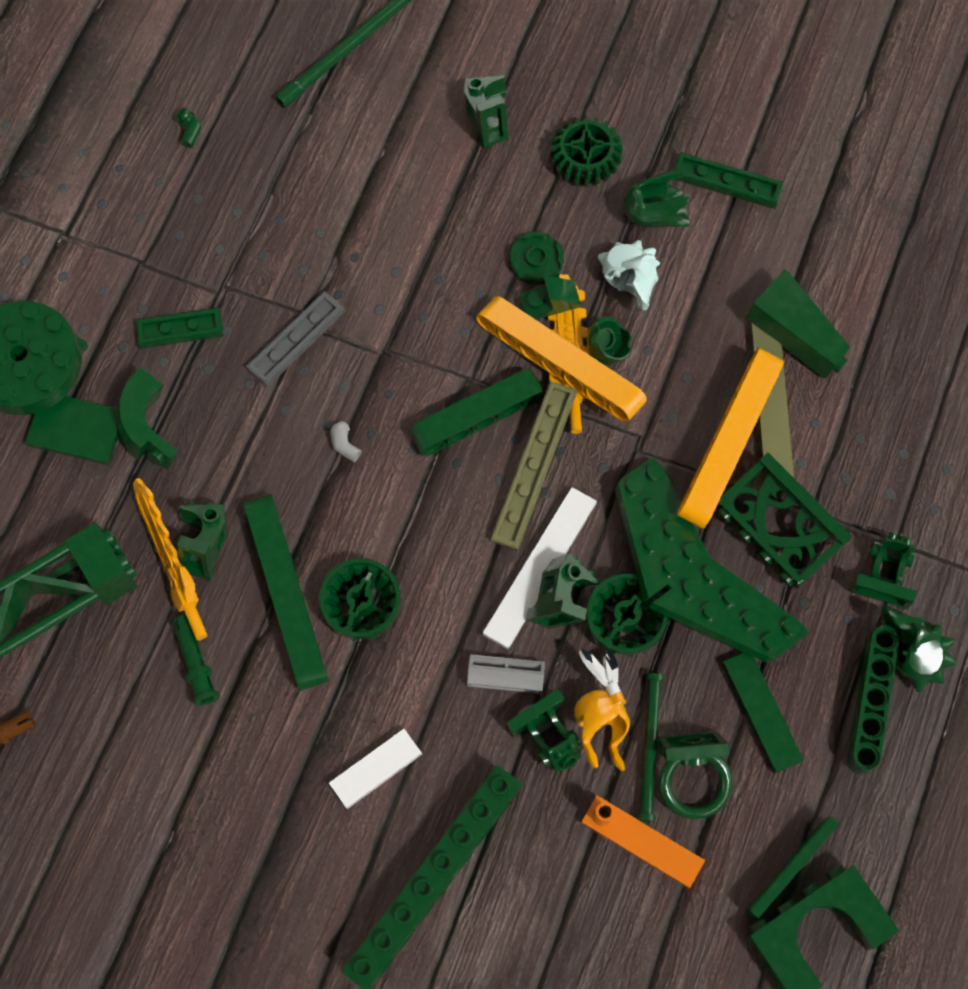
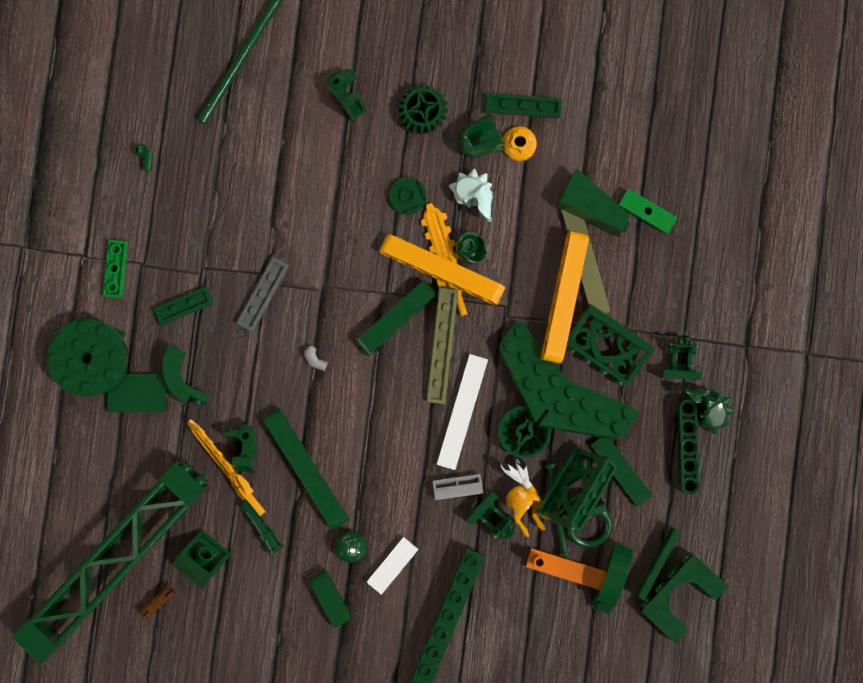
camera: 15 degrees left, 15 degrees up
(90, 685) = (201, 559): none -> dark green slope
(96, 270) = (115, 281): none -> green tile
(266, 794) = (330, 598): none -> dark green beam
(319, 722) = (350, 547): none -> dark green hair
(360, 578) = (336, 460): dark green gear -> none
(554, 298) = (424, 226): dark green slope -> none
(554, 598) = (476, 428): dark green tile -> none
(690, 736) = (580, 506): none -> dark green fence
(707, 236) = (519, 153): none -> light orange piece
(714, 874) = (614, 578): none -> dark green arch
(889, 365) = (658, 216): none -> green tile

